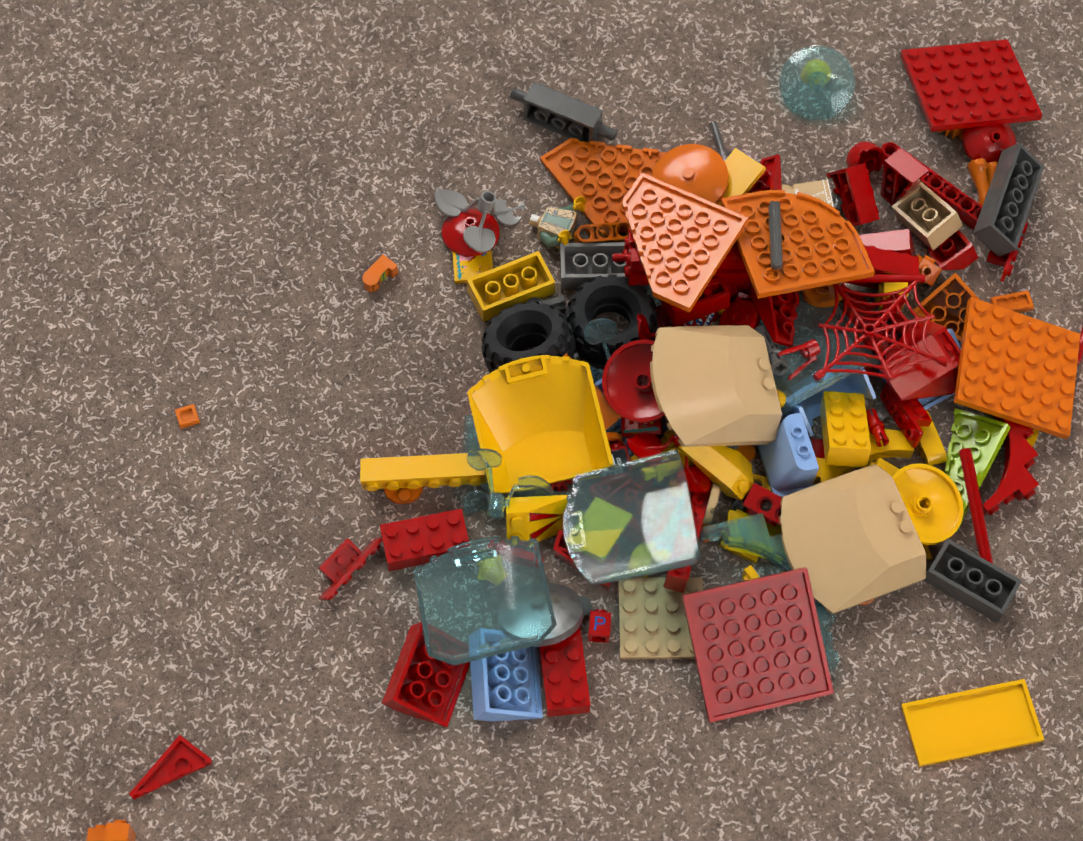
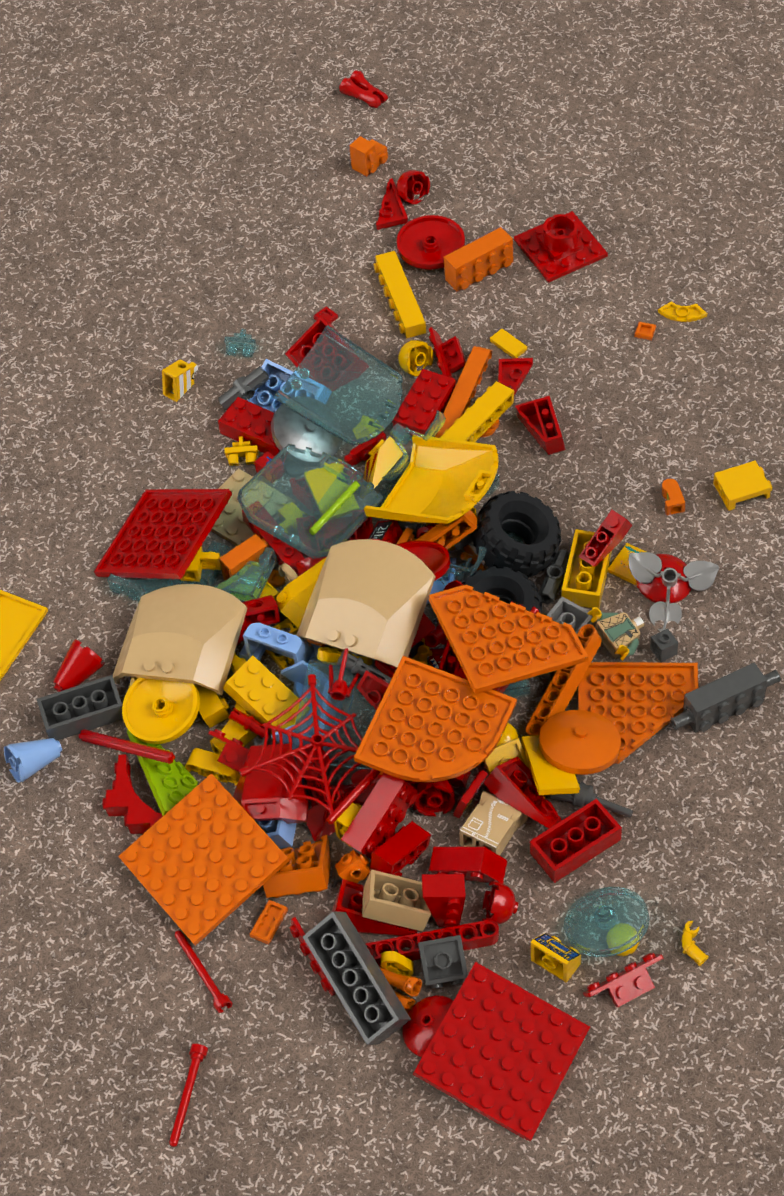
camera: 135 degrees right, 10 degrees down
(120, 562) = (560, 246): none -> red piece
(130, 762) = (413, 183): none -> red cylinder
(141, 398) = (682, 313): none -> yellow tile
(201, 612) = (478, 259): none -> orange brick
(203, 682) = (428, 239): none -> red dish
(287, 524) = (508, 343): none -> yellow tile
(294, 665) = (400, 295): none -> yellow brick
(327, 227) = (741, 484): none -> yellow panel
(330, 491) = (513, 371): none -> red wing
(369, 520) = (466, 386): none -> orange beam
(370, 722) = (326, 313): none -> red tile
(372, 590) = (415, 354): none -> yellow cylinder
(373, 420) = (542, 423): none -> red wedge
(467, 774) = (242, 341): none -> clear light blue hips
(480, 273) = (606, 538): none -> red slope
(530, 715) = (244, 387): none -> dark grey piece
(542, 188) = (664, 645): none -> dark grey brick
(569, 794) = (178, 377): none -> yellow torso
(600, 667) = (241, 449): none -> yellow hips
(621, 504) = (332, 510): none -> lime bar
(724, 556) = (240, 555): none -> orange brick
(766, 137) = (575, 840): none -> red brick
(775, 235) = (446, 705): dark grey axle -> none
(785, 31) = (689, 946): none -> yellow piece
(852, 50) = (627, 984): none -> bracket
(870, 98) = (554, 956): none -> yellow slope
(938, 617) = (77, 667): none -> red cone
(941, 160) = (443, 961): none -> dark grey plate
(971, 188) = (397, 963): none -> yellow beam
(1047, 583) = (31, 756): none -> light blue cone

